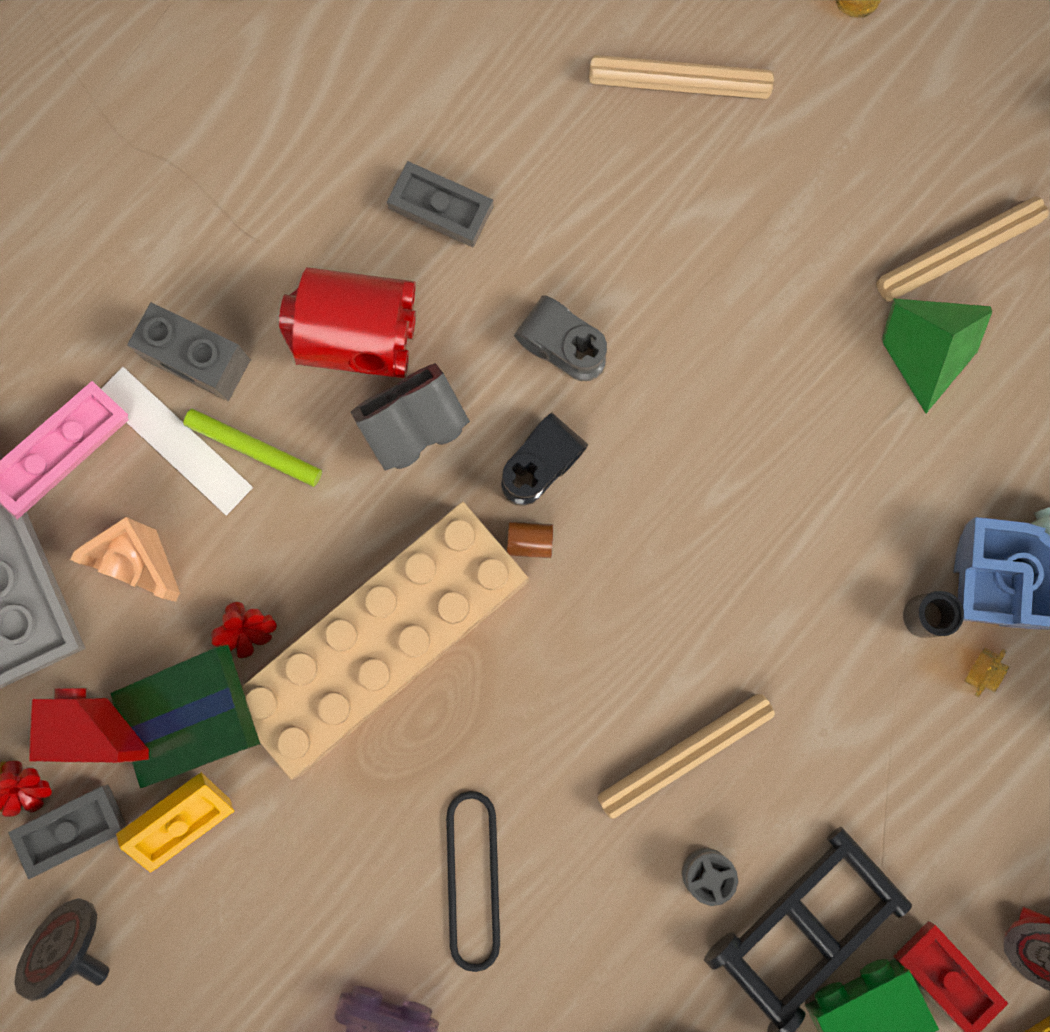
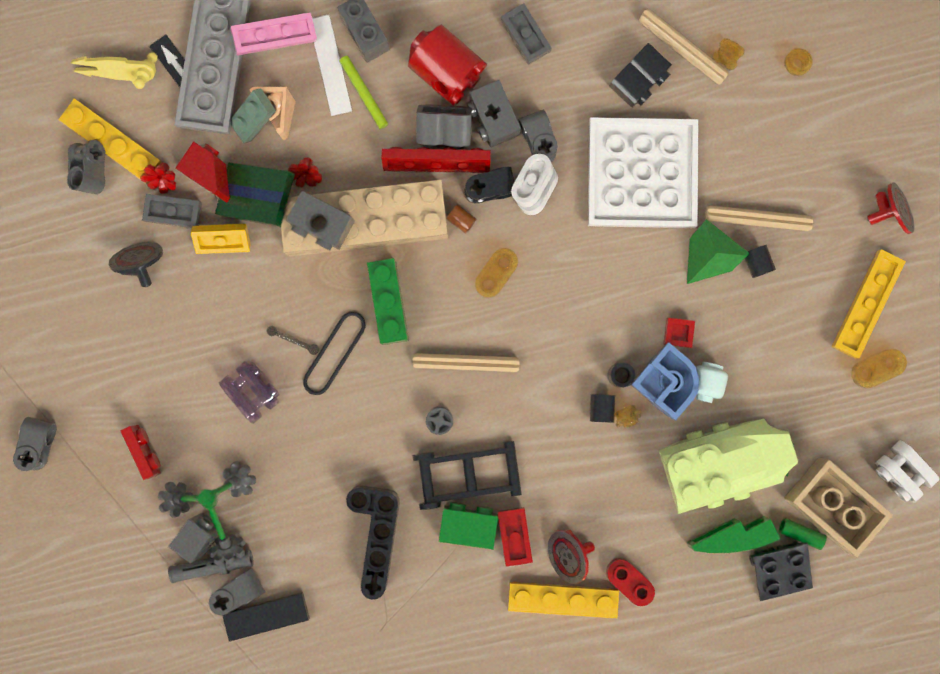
camera: 40 degrees right, 5 degrees up
(101, 596) = (252, 115): none -> sand green plate
(286, 686) = (308, 209): none -> dark grey brick
(434, 476) = (436, 160): none -> red plate
(435, 898) = (313, 349): none -> clear smoke hinge
(460, 328) = (494, 98): none -> dark grey brick
(506, 746) = (388, 301): none -> green brick
(607, 414) = (534, 184): none -> white brick
(639, 587) = (496, 273): none -> clear yellow plate
(651, 156) = (641, 75): none -> black brick
(751, 293) = (643, 172): none -> white plate
(752, 33) = (733, 48): none -> clear yellow plate
(940, 685) = (602, 408): none -> black beam
(971, 492) = (679, 332): none -> red plate
(1012, 309) = (760, 261): none -> black beam

